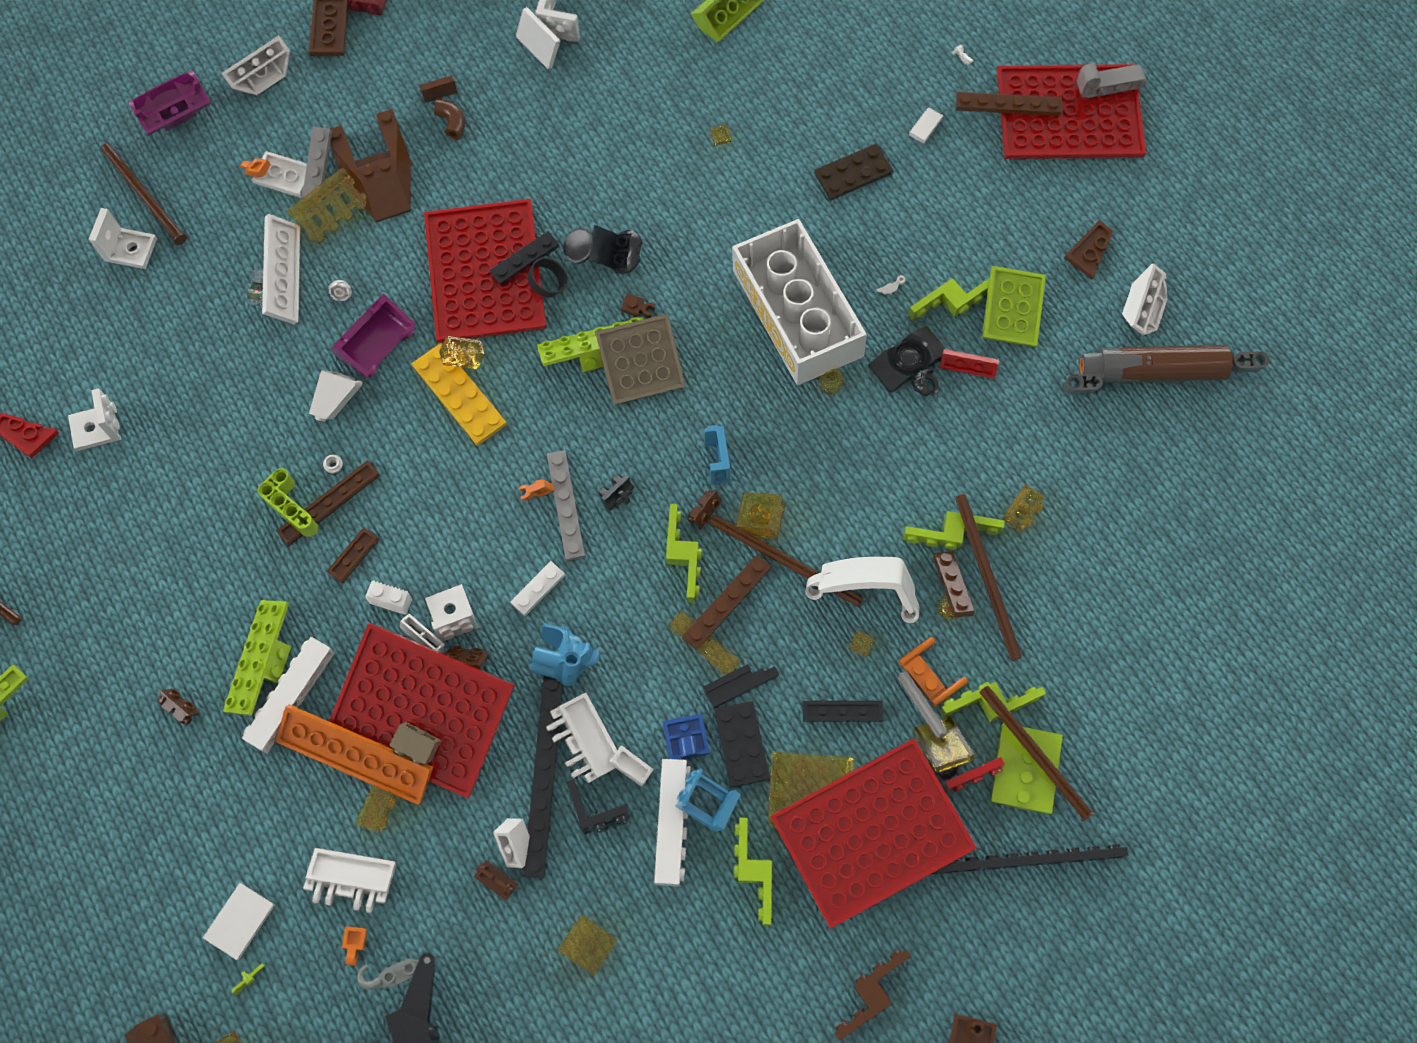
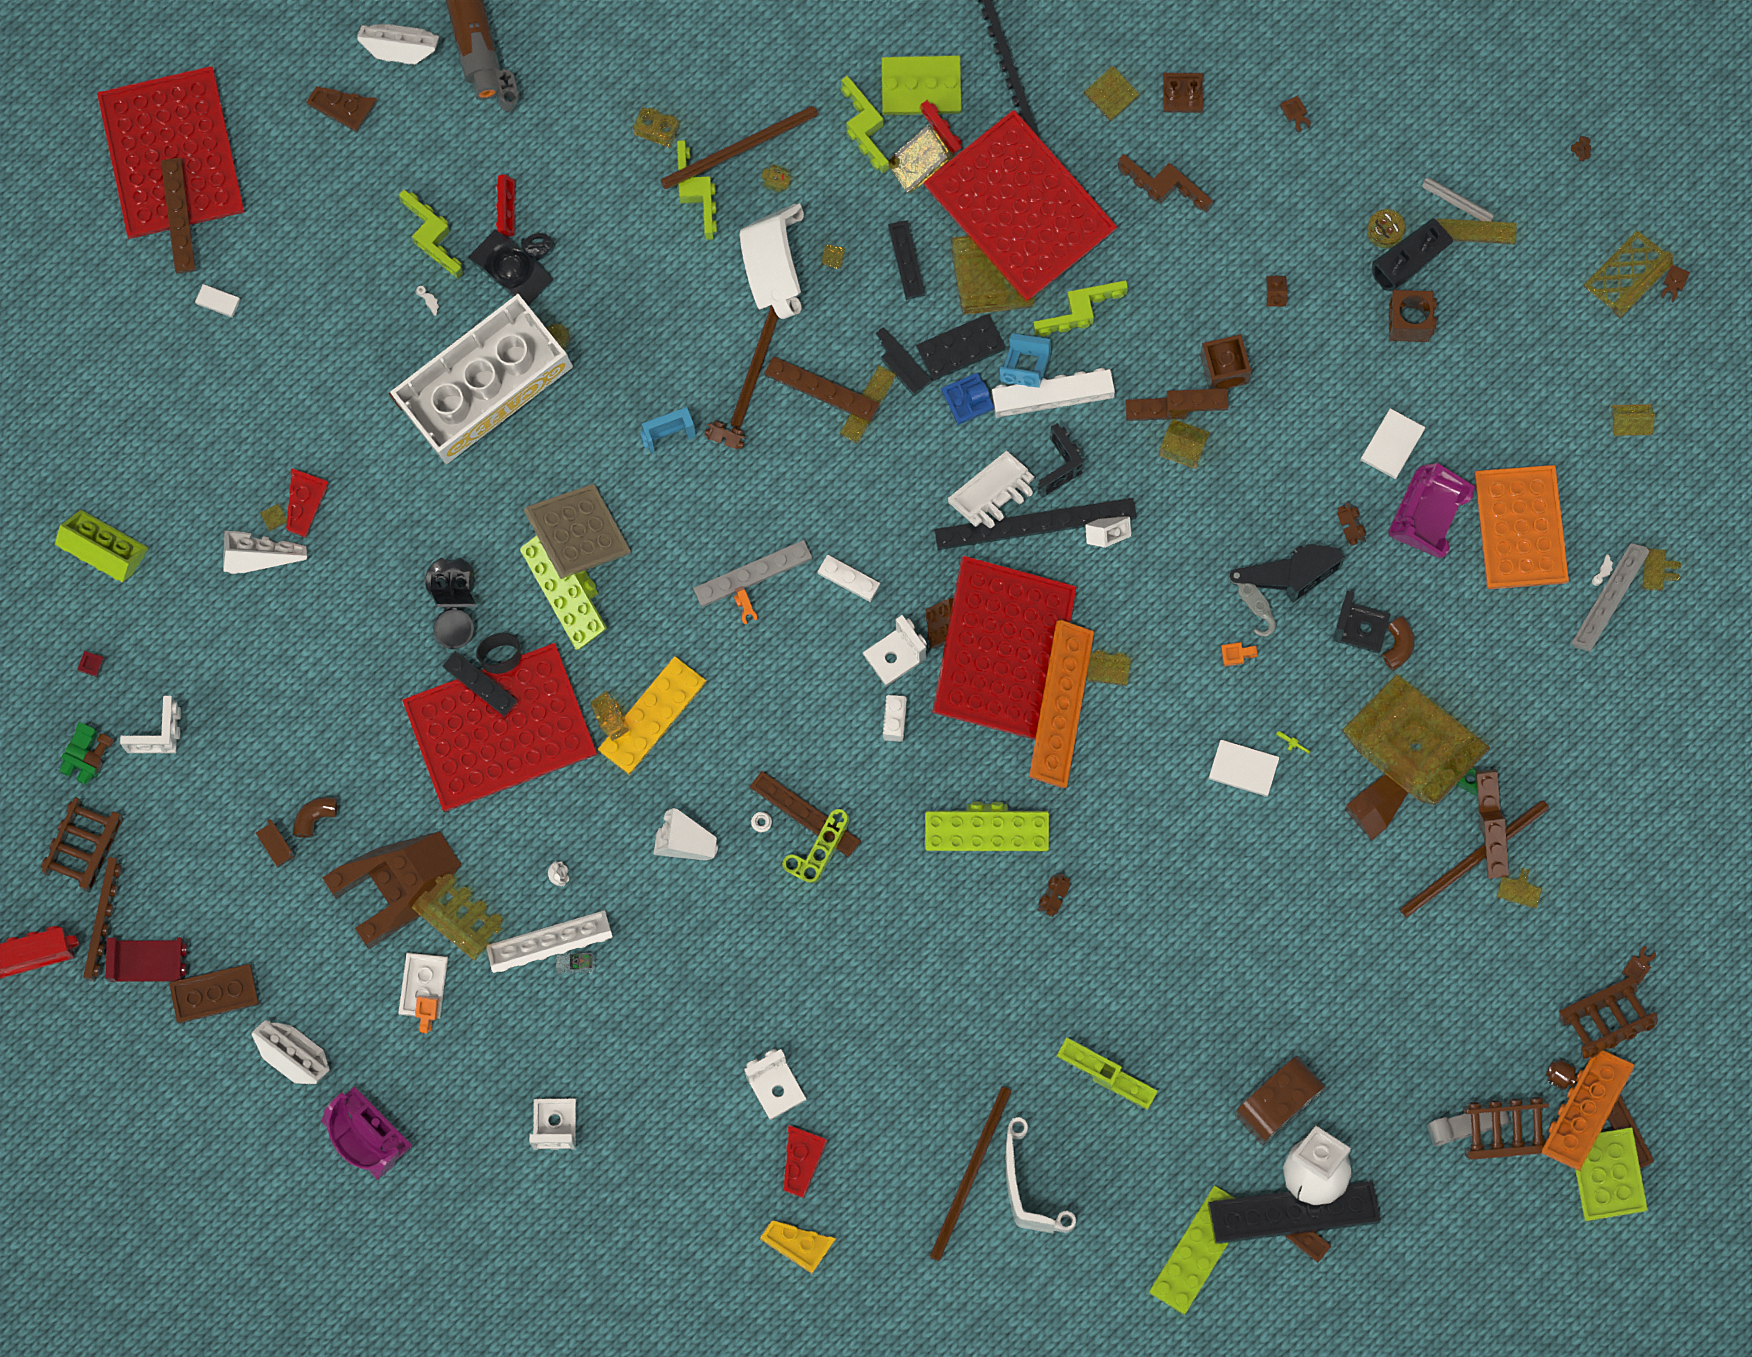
camera: 100 degrees left, 5 degrees up
(179, 238) = (481, 1135): reddish brown axle -> none
(291, 690) = (1016, 787): white brick -> none
(317, 159) = (408, 943): light grey plate -> none
(345, 874) = (1175, 673): white hinge -> none
(353, 555) = (856, 772): reddish brown tile -> none
(373, 336) = (605, 823): magenta windscreen -> none
(415, 743) = (1039, 641): dark tan brick -> none
(425, 634) = (930, 675): white piece -> none
(495, 880) = (1146, 541): reddish brown hinge -> none
(537, 38) = (192, 742): white tile -> none
(569, 659) = (917, 521): dark azure helmet -> none
(618, 493) = (720, 520): black hips -> none
(626, 946) = (1176, 404): none -> reddish brown bracket
(631, 766) = (1007, 442): white tile -> none
(635, 305) = (508, 559): reddish brown plate -> none
(655, 1006) = (1225, 363): none -> reddish brown brick
(683, 553) = (780, 445): lime bracket -> none
(692, 111) = (249, 554): none -> white wedge
(729, 159) = (304, 501): none -> red wing
(761, 514) = (722, 376): clear yellow slope -> none
(853, 171) = (293, 366): dark brown plate -> none
(922, 705) = (884, 186): light grey axle -> none
(925, 677) = (853, 191): orange plate -> none
(953, 584) = (755, 177): plate -> none
(959, 50) = (110, 282): white piece -> none
(984, 962) = (1111, 93): none -> clear yellow plate
(1013, 306) = (431, 171): lime plate -> none
(1036, 753) = (908, 74): reddish brown axle -> none
(1095, 83) = (129, 111): light grey beam -> none

